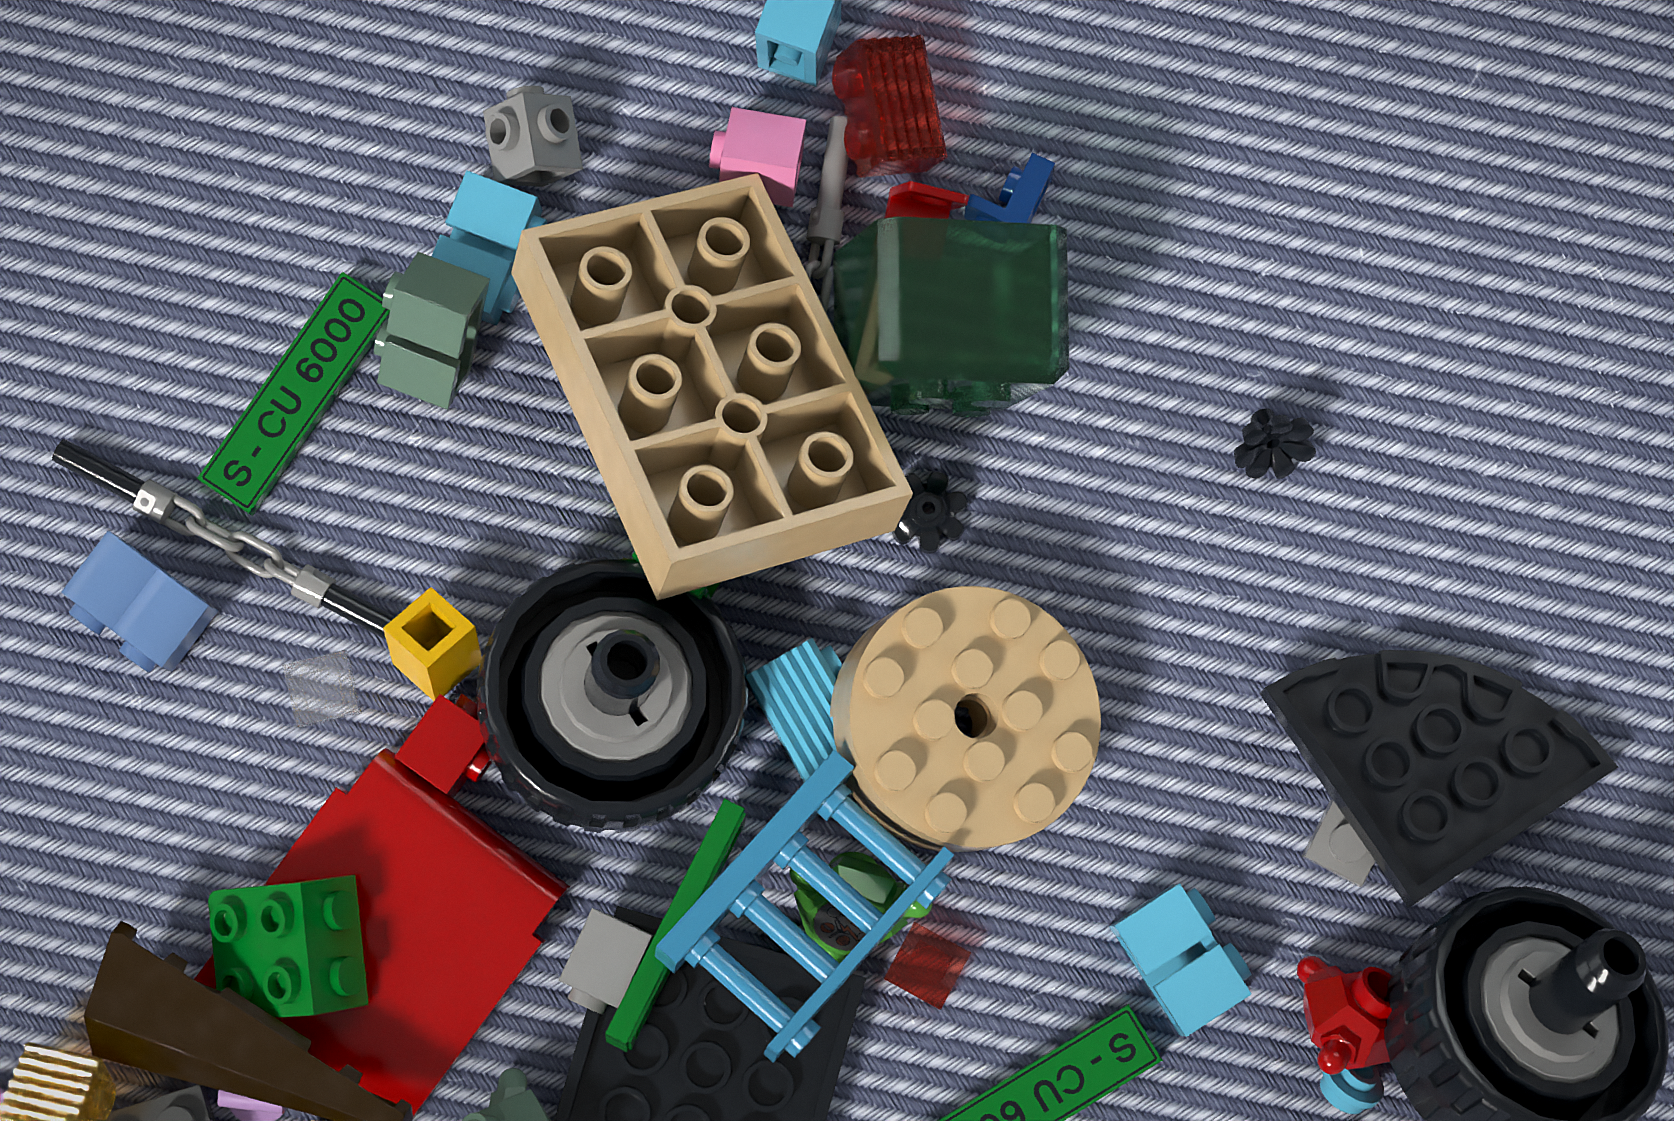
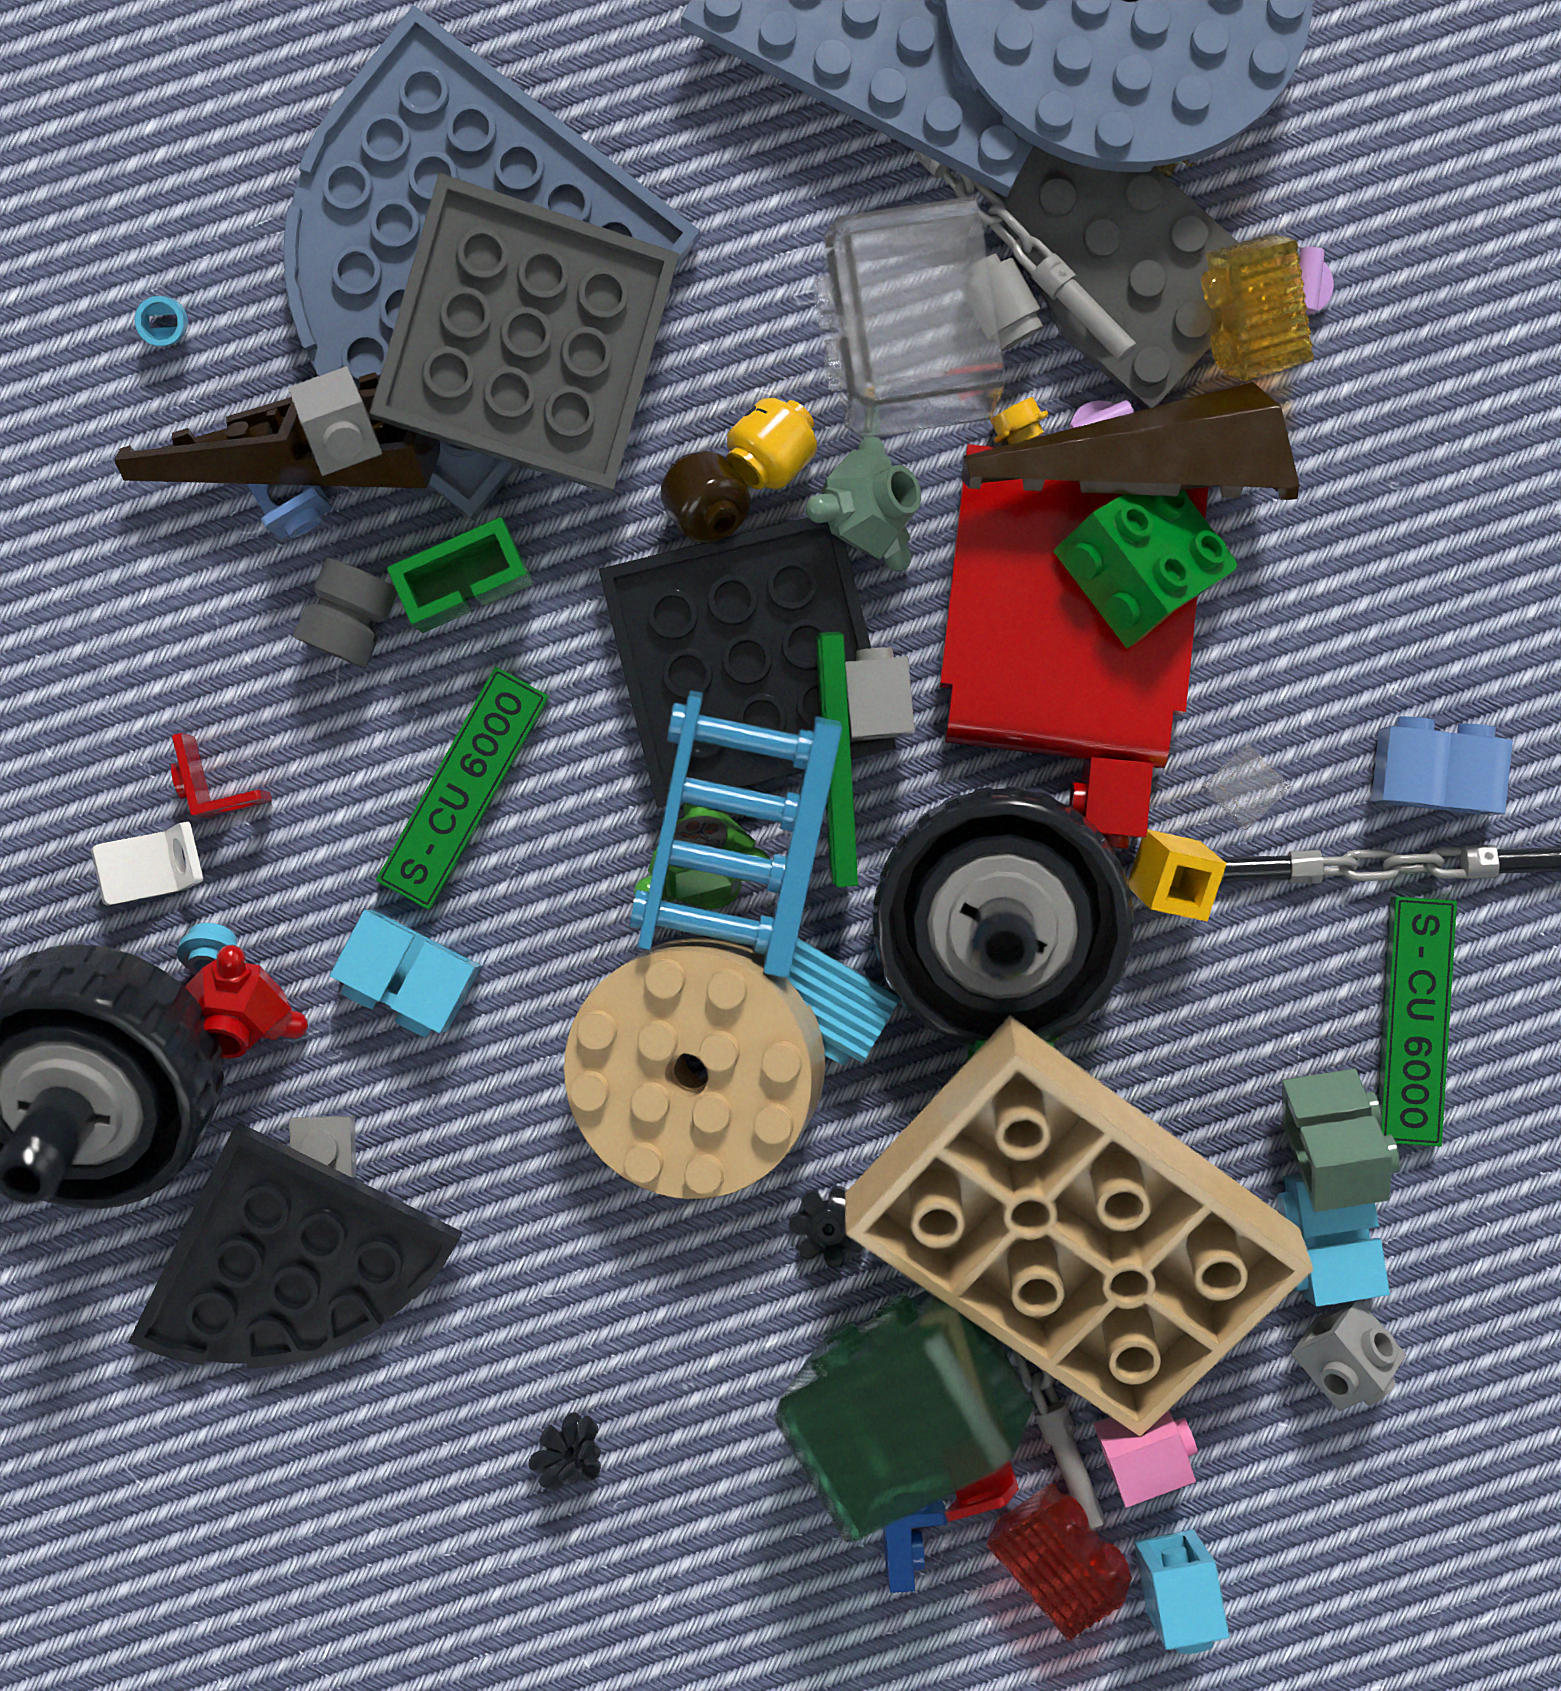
camera: 155 degrees right, 5 degrees up
(927, 965) = (613, 846): clear red plate -> none

